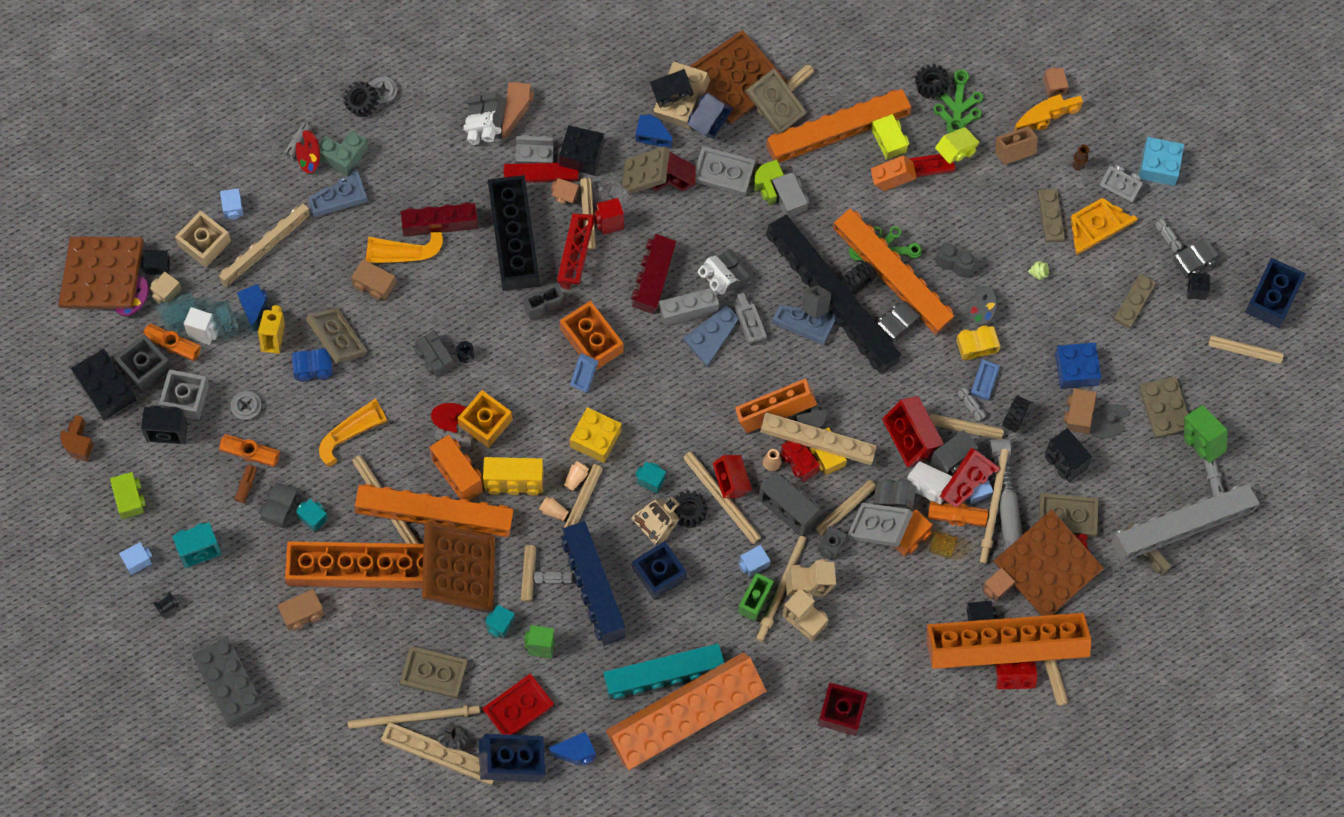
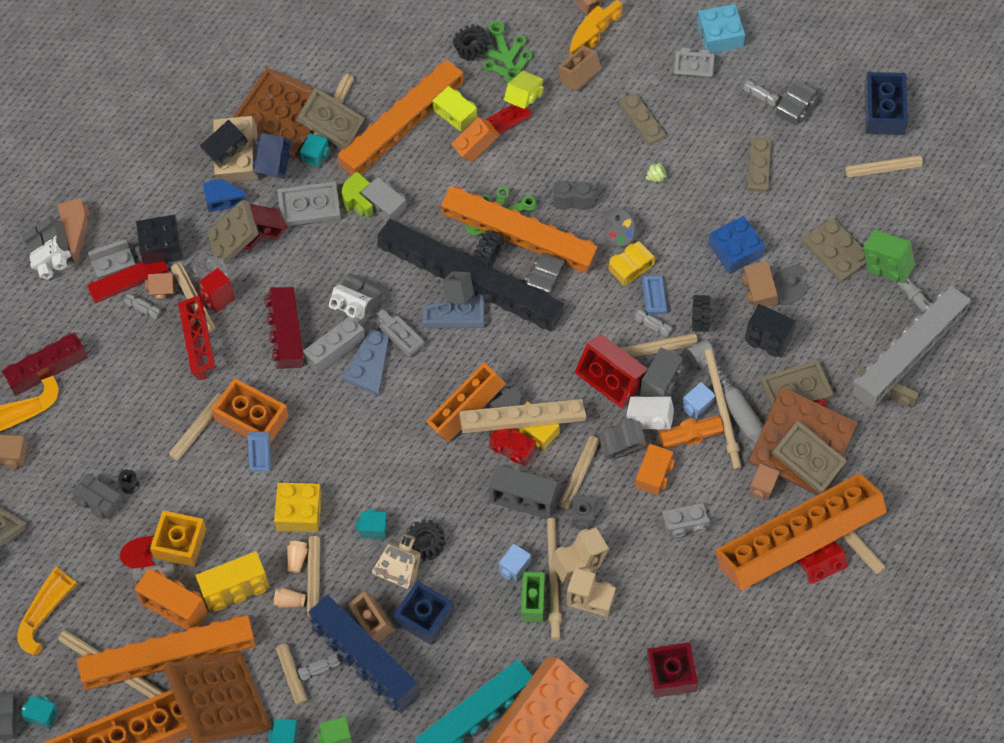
camera: 20 degrees left, 5 degrees down
(513, 232) = (126, 345): black brick -> none
(539, 330) = (194, 430): none -> tan axle
(540, 303) = (189, 397): dark grey brick -> none
(543, 202) = (143, 306): none -> light grey axle
(614, 555) = (372, 616): none -> medium nougat brick
(726, 503) = (452, 515): tan axle -> none
(732, 476) = (453, 489): red brick -> none
(750, 123) = (315, 150): none -> teal brick
(772, 460) = (485, 458): light nougat cone -> none
(880, 524) = (622, 473): light grey plate -> none
(916, 588) = (686, 520): none -> light grey bracket
(943, 544) = (691, 467): clear yellow piece -> none
(970, 474) = (687, 386): red wing -> none
(981, 611) = (759, 515): black brick -> none
(1045, 580) = (808, 457): none -> dark tan plate
(1081, 157) = (645, 54): reddish brown pin -> none
(1097, 223) = (689, 109): light orange wing -> none
(1198, 286) = (812, 126): black brick -> none

